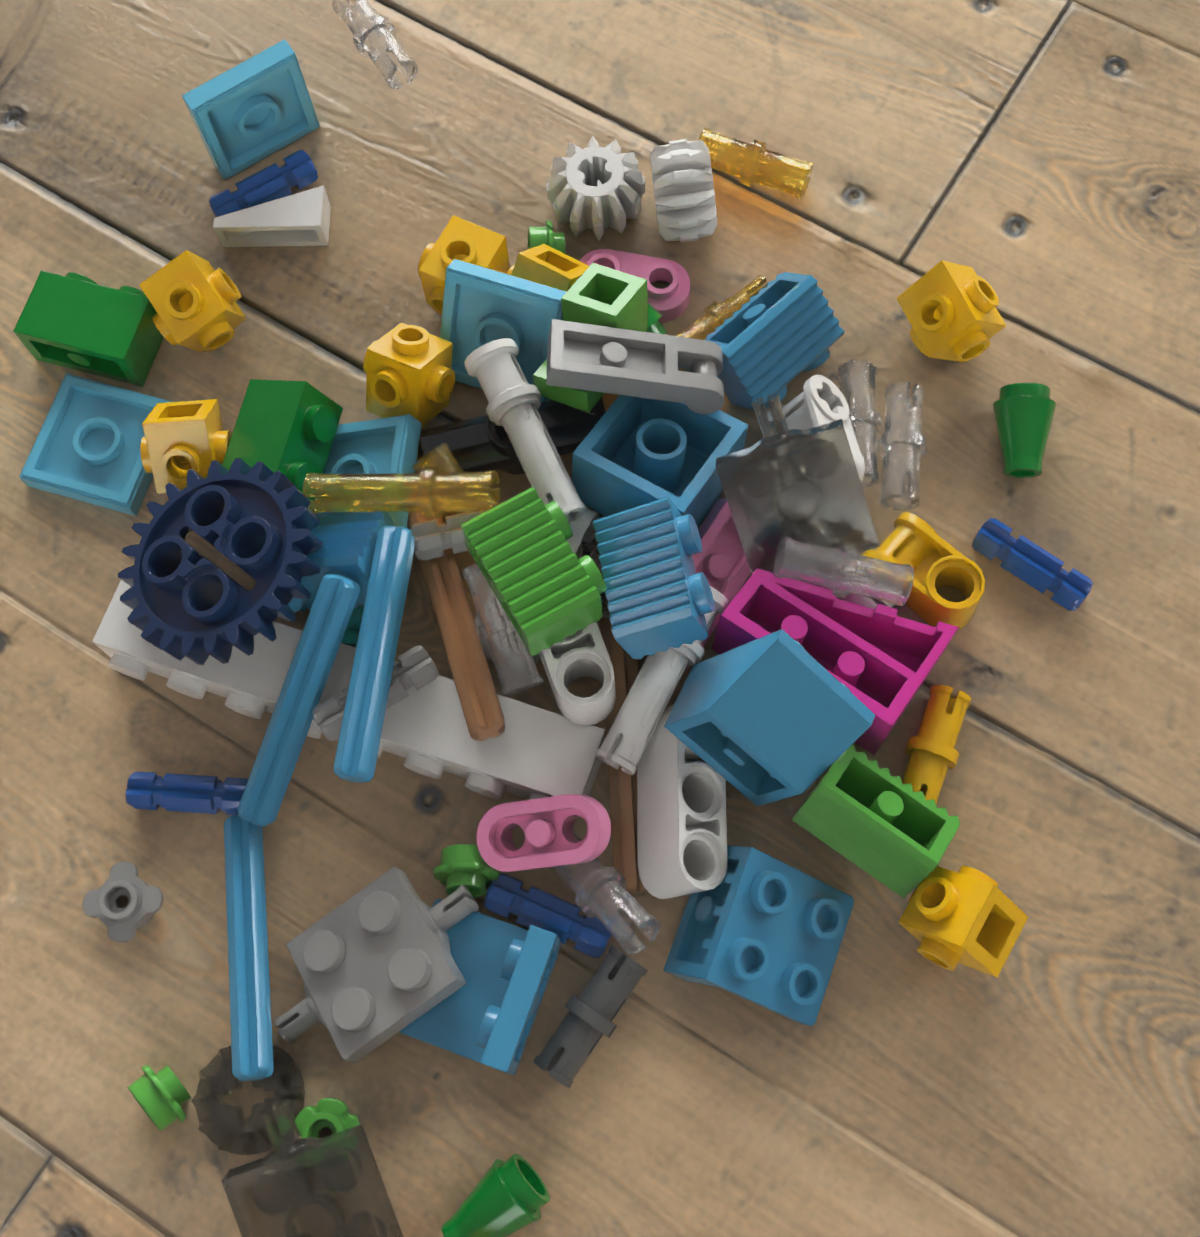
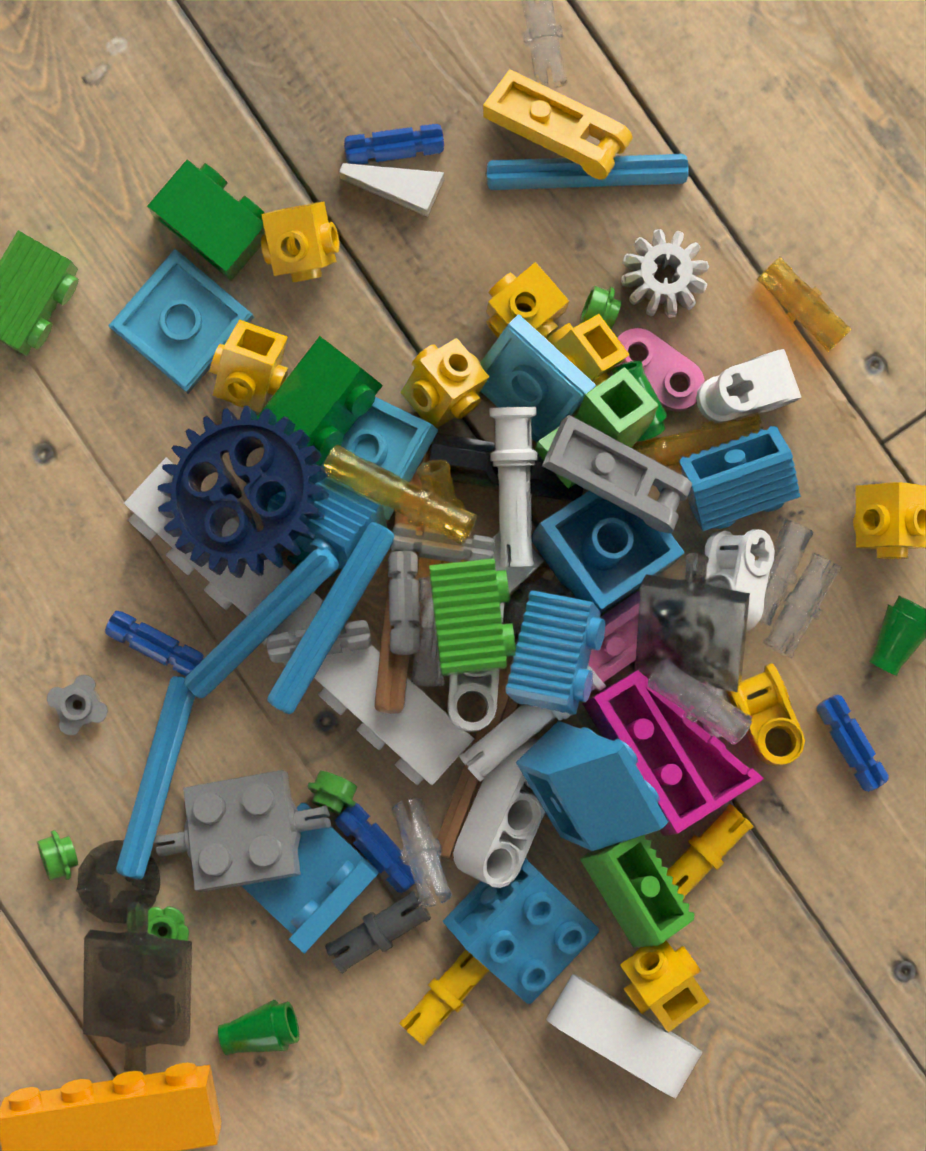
camera: 15 degrees right, 15 degrees up
(252, 109) = (412, 83): medium azure tile -> none
(423, 97) = (557, 123): none -> yellow plate
(455, 604) = (403, 602): none -> light grey axle
(473, 135) = (568, 174): none -> dark azure axle
(547, 833) = (400, 797): bright pink plate -> none
(683, 190) = (731, 315): white gear -> none
(706, 1060) = (444, 997): none -> yellow pin
(736, 253) = (749, 388): none -> white piece
(946, 1010) = (624, 1036): none -> white beam

